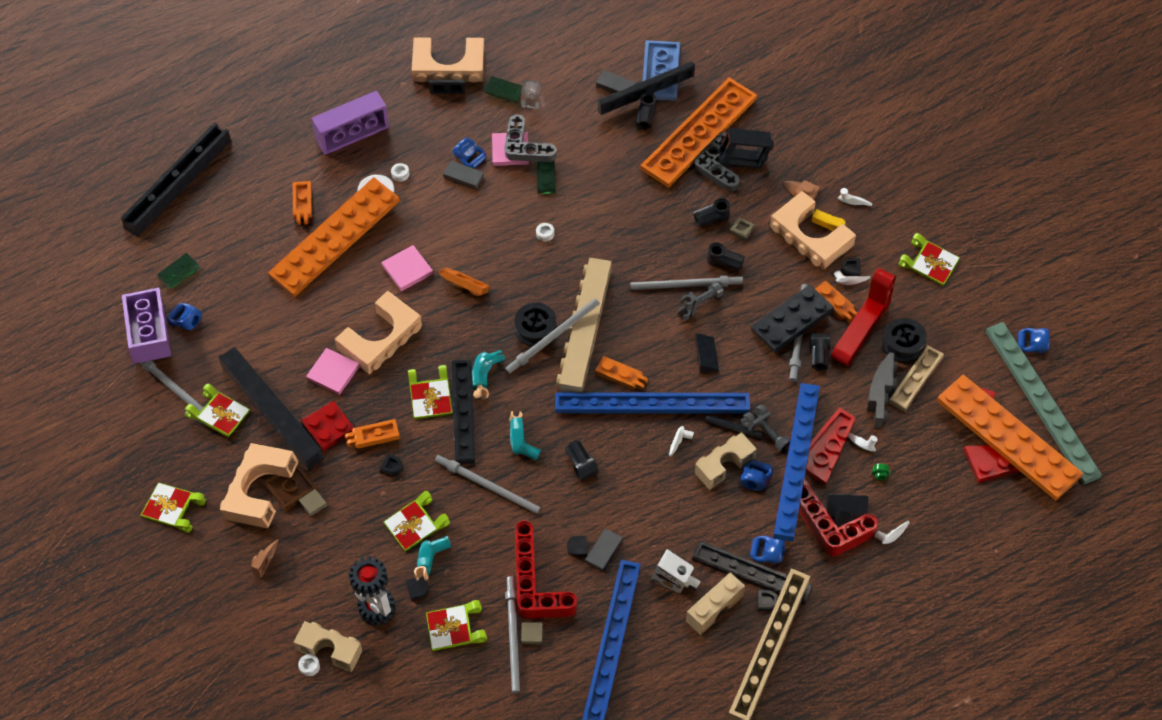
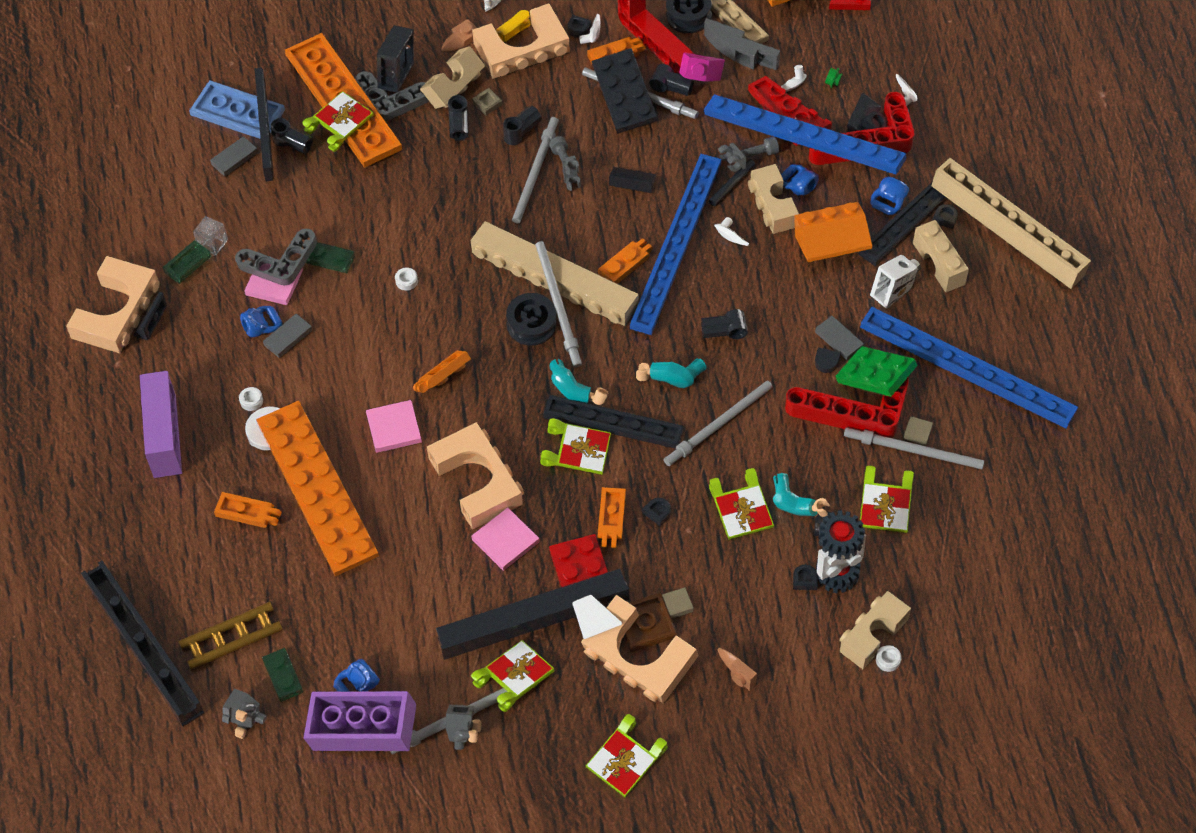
camera: 70 degrees left, 0 degrees up
(140, 255) = (243, 711): none -> dark grey piece
(163, 388) = (459, 723): none -> dark grey piece
(200, 239) = (217, 630): none -> pearl gold bar
(272, 443) = (593, 617): none -> white sticker
(571, 581) = (876, 371): none -> green plate
(675, 135) = (341, 117): none -> flag
(704, 512) = (832, 231): none -> orange slope
(765, 200) = (465, 68): none -> tan arch
(837, 365) = (701, 67): none -> dark pink slope

